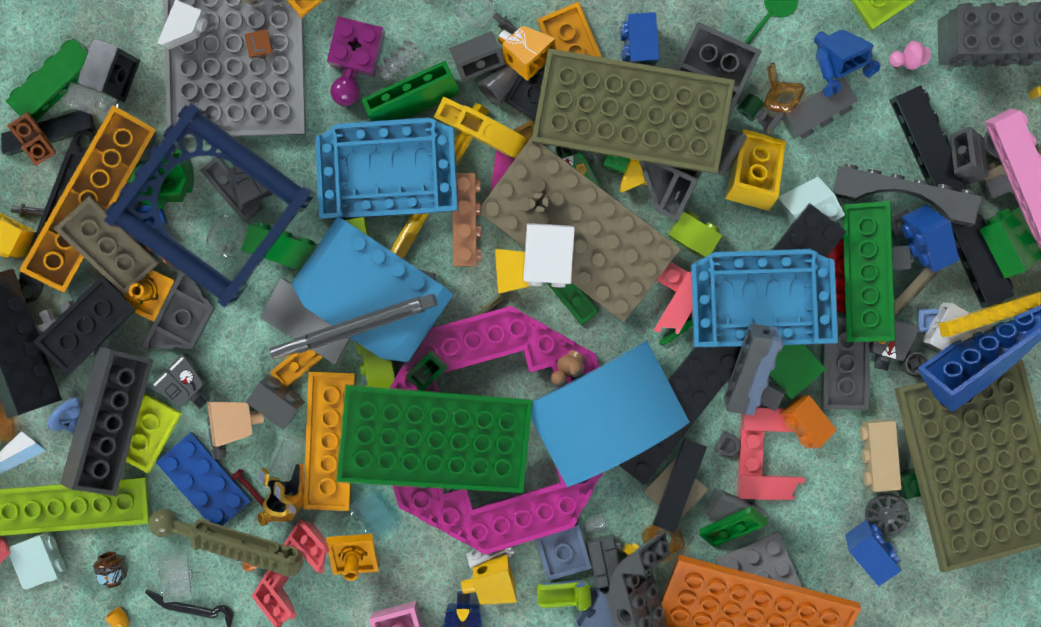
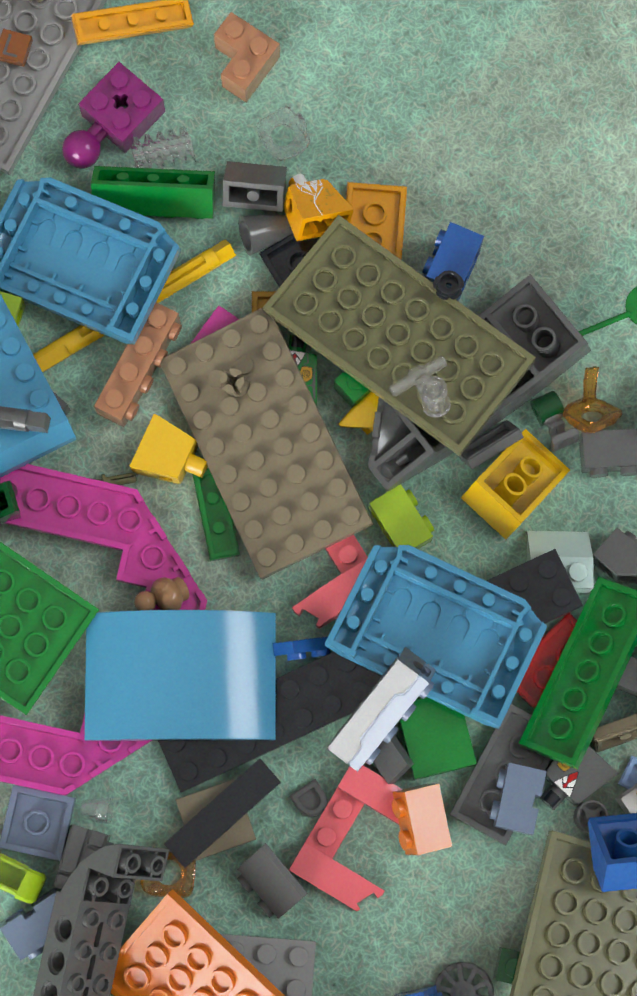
camera: 25 degrees right, 10 degrees down
(480, 127) = (213, 266): yellow slope -> none
(503, 22) = (307, 166): dark grey piece -> none
(548, 254) = (211, 447): white brick -> none
(651, 54) = (452, 278): none -> black plate
(667, 338) = (311, 629): green piece -> none
(674, 139) = (431, 389): none -> clear piece
(676, 351) = (298, 648): none -> blue plate
(733, 526) = (259, 897): green tile -> none
(863, 378) = (515, 804): none -> sand blue brick
(880, 455) = (492, 910): tan brick -> none

